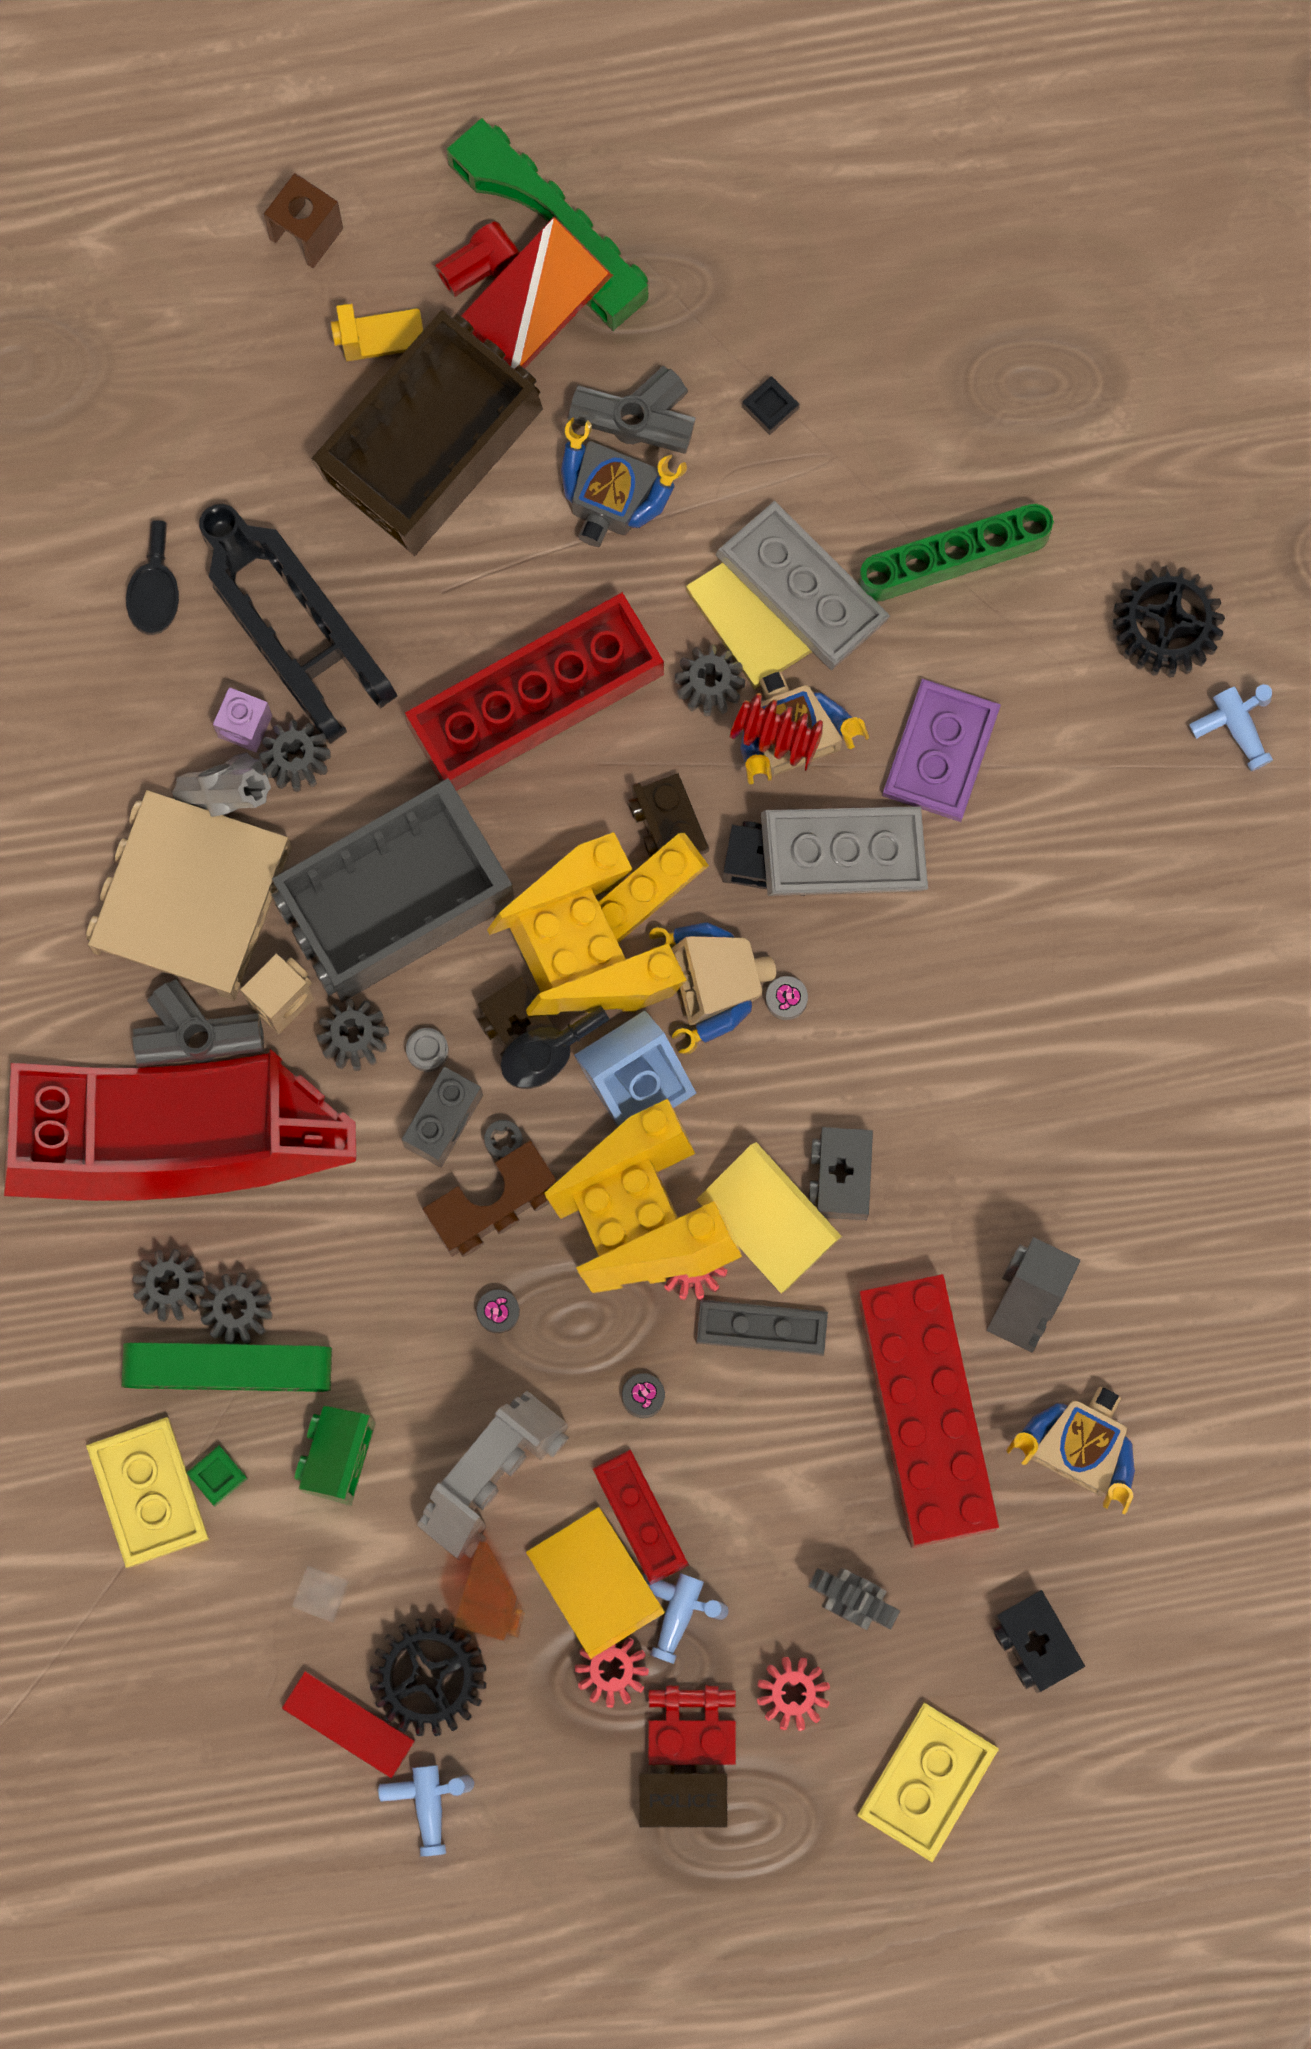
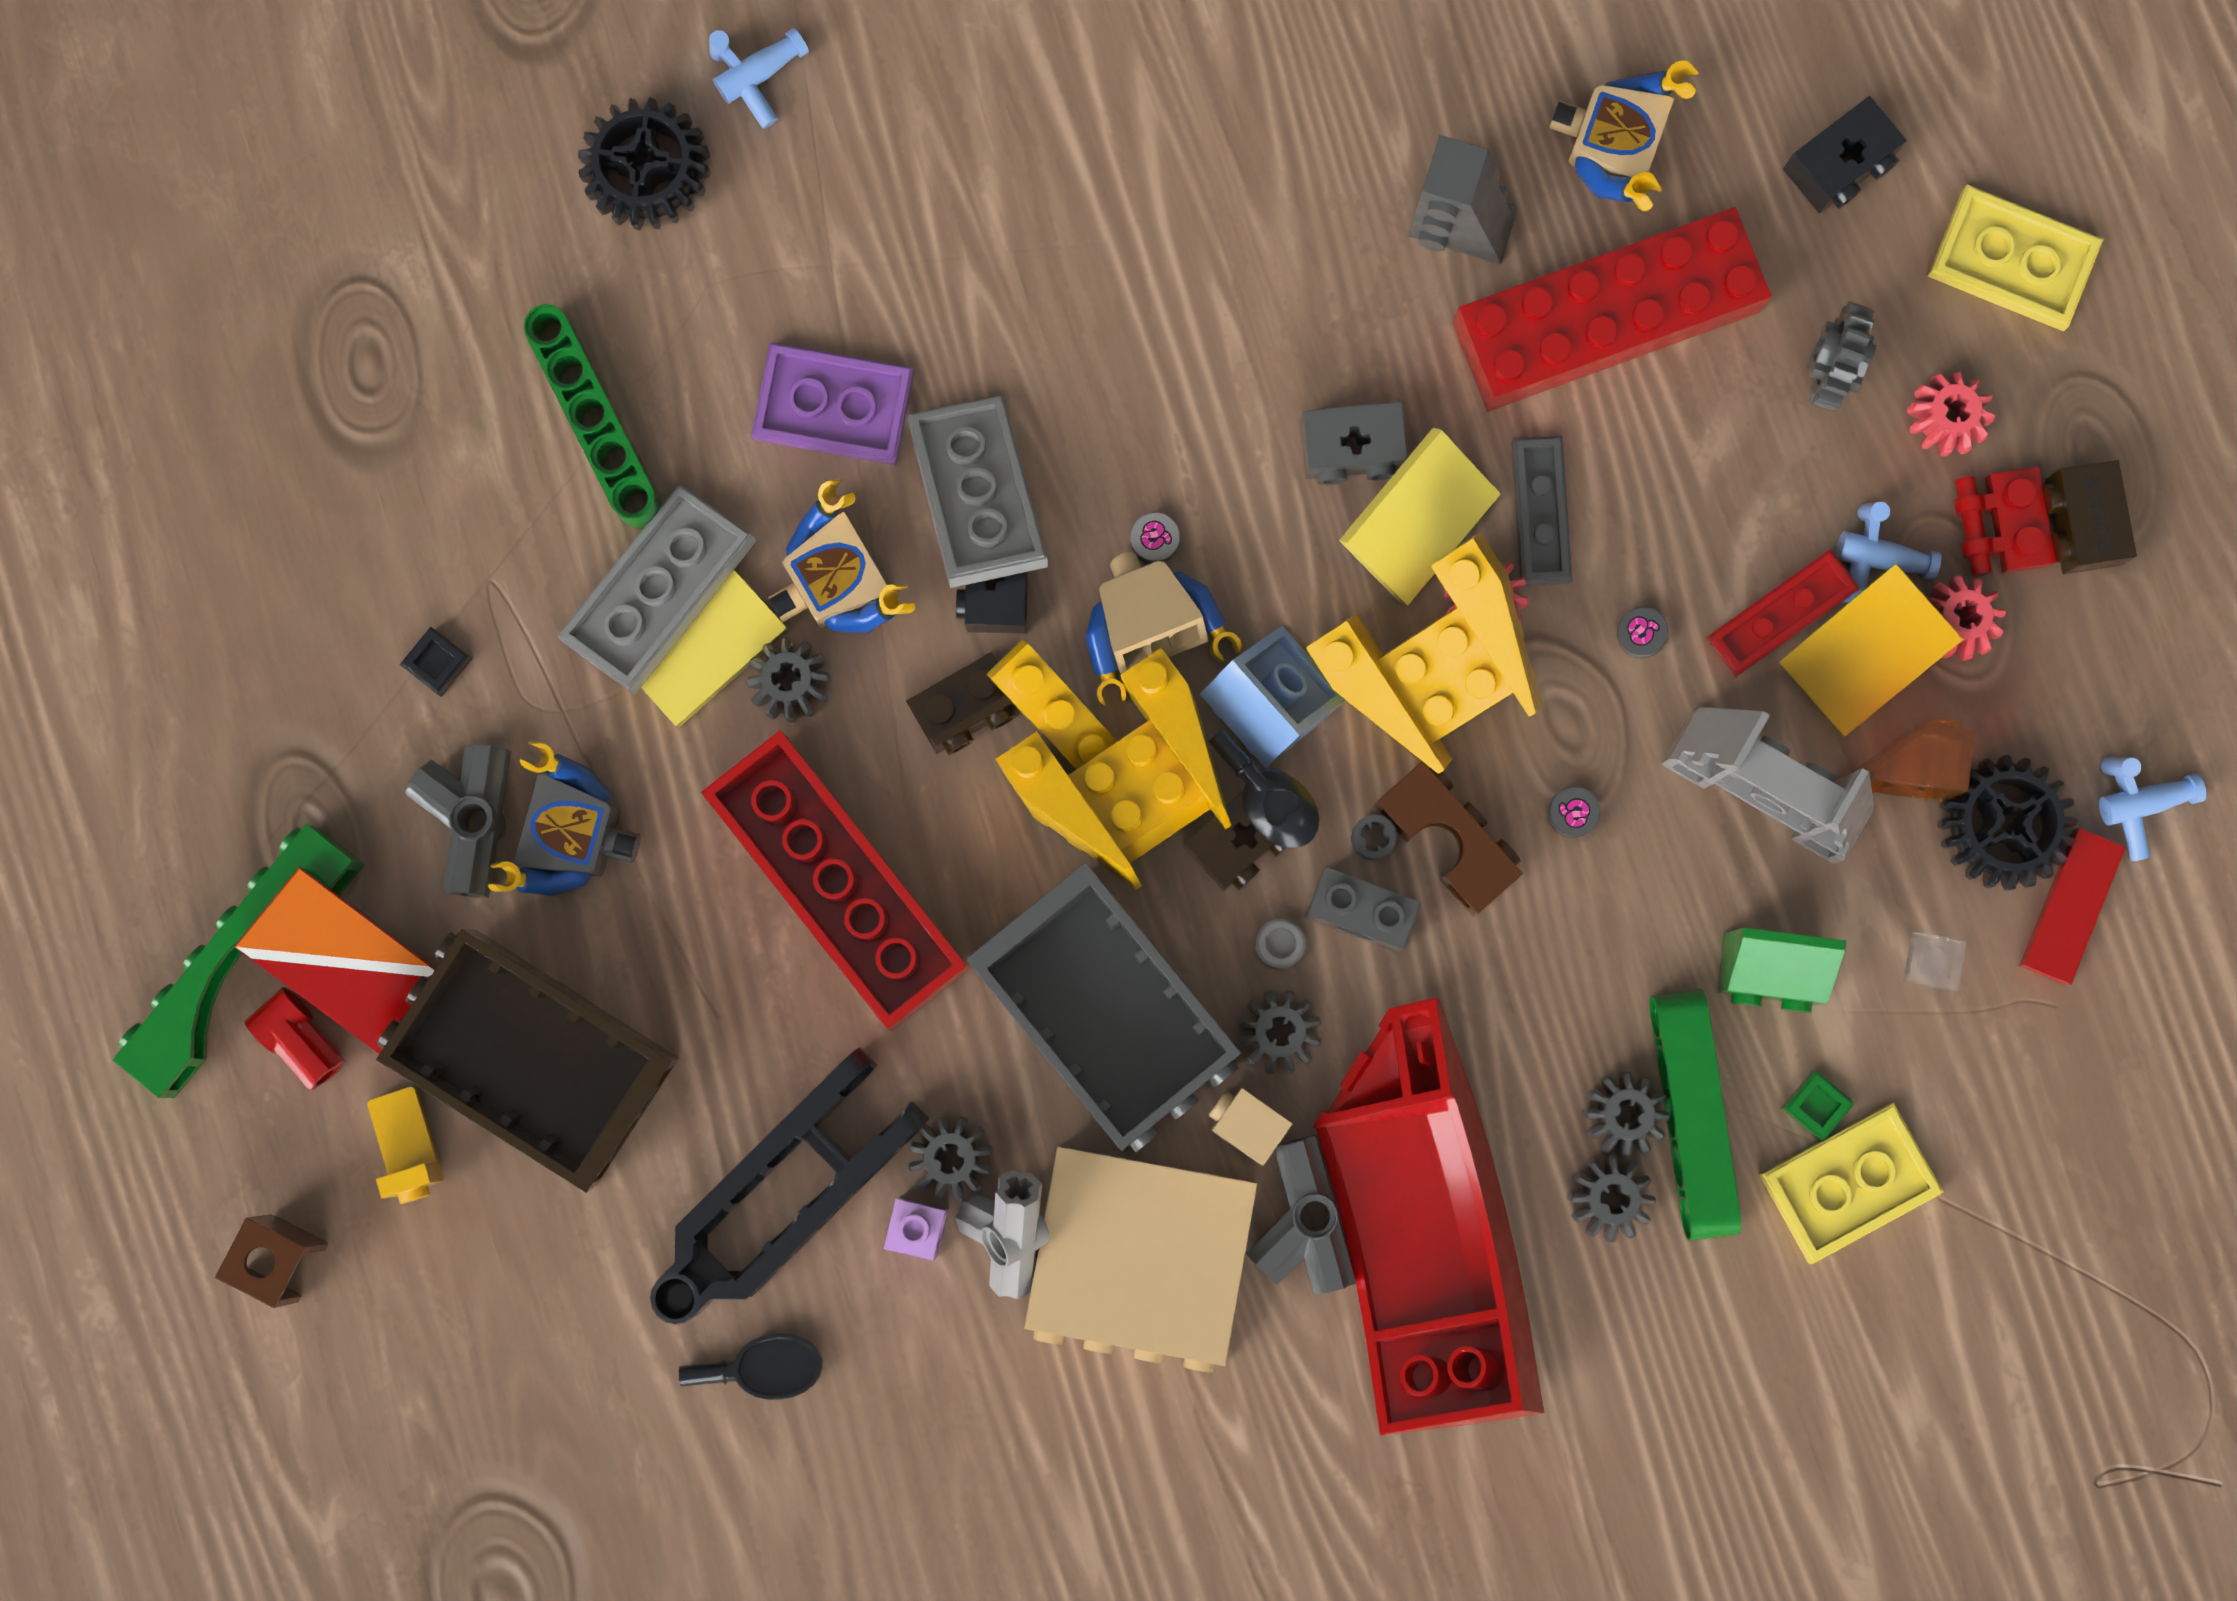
camera: 95 degrees left, 5 degrees up
(777, 730) = (847, 580): red piece -> none

